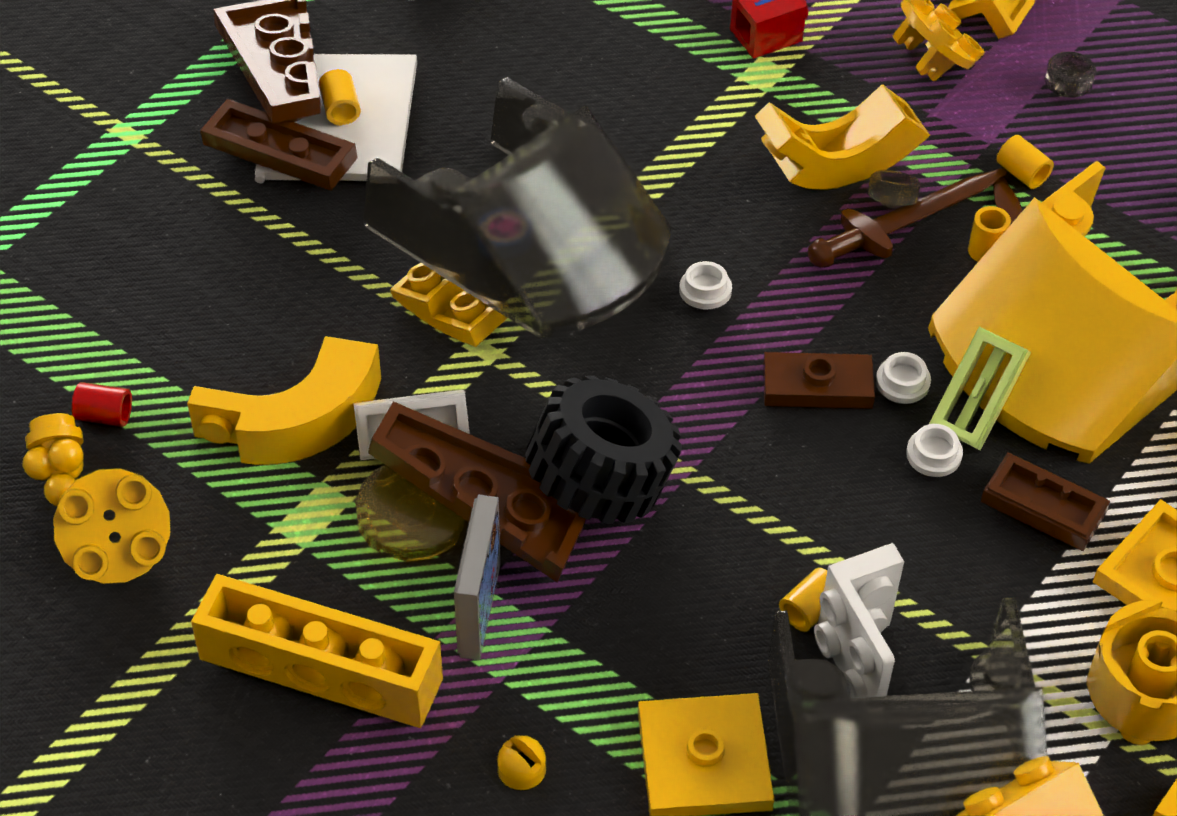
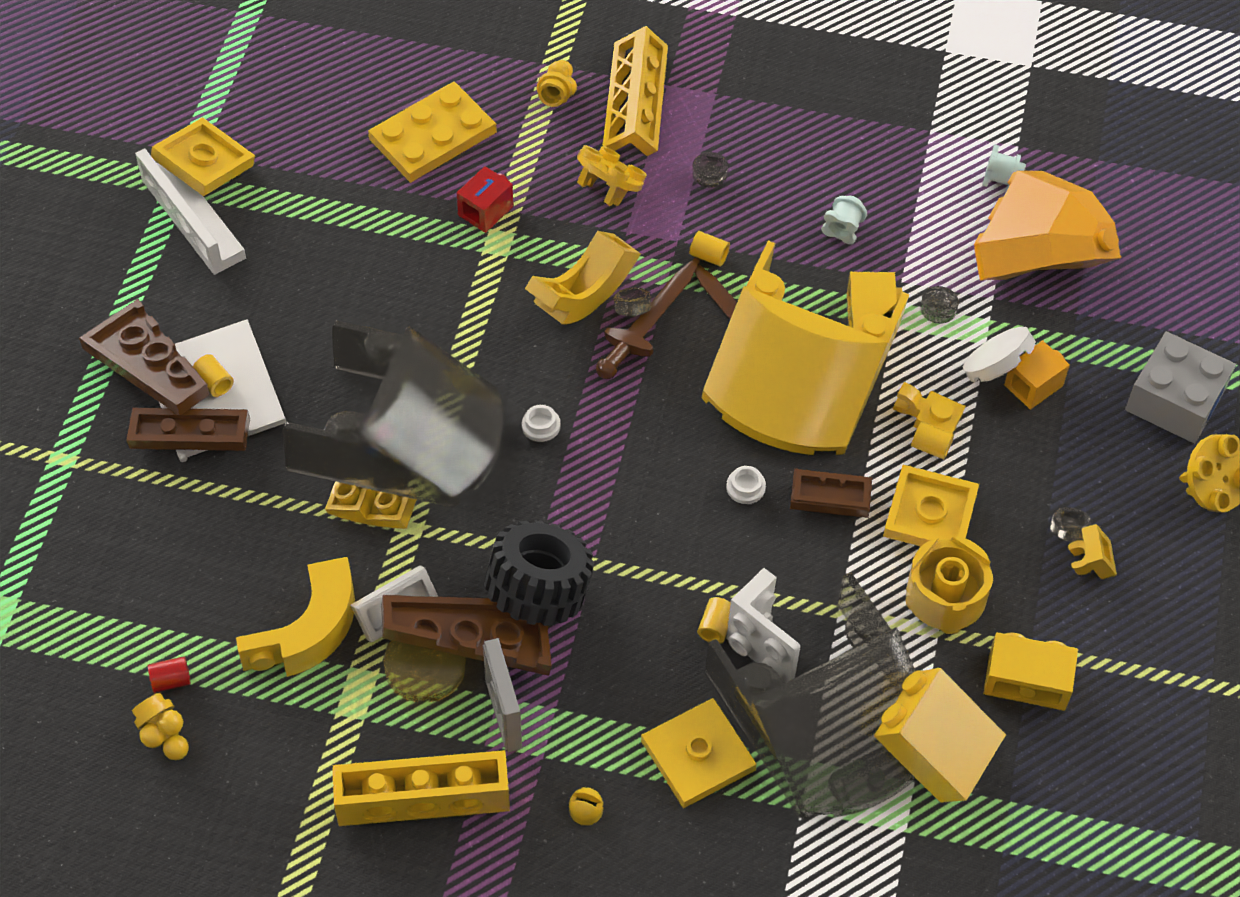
camera: 25 degrees left, 5 degrees up
(84, 533) = (217, 773): yellow plate -> none
(818, 380) = (647, 463): reddish brown plate -> none
(903, 378) = (702, 441): white plate -> none
(987, 228) = (711, 313): yellow hinge -> none
(999, 396) = (762, 398): yellowish green tile -> none

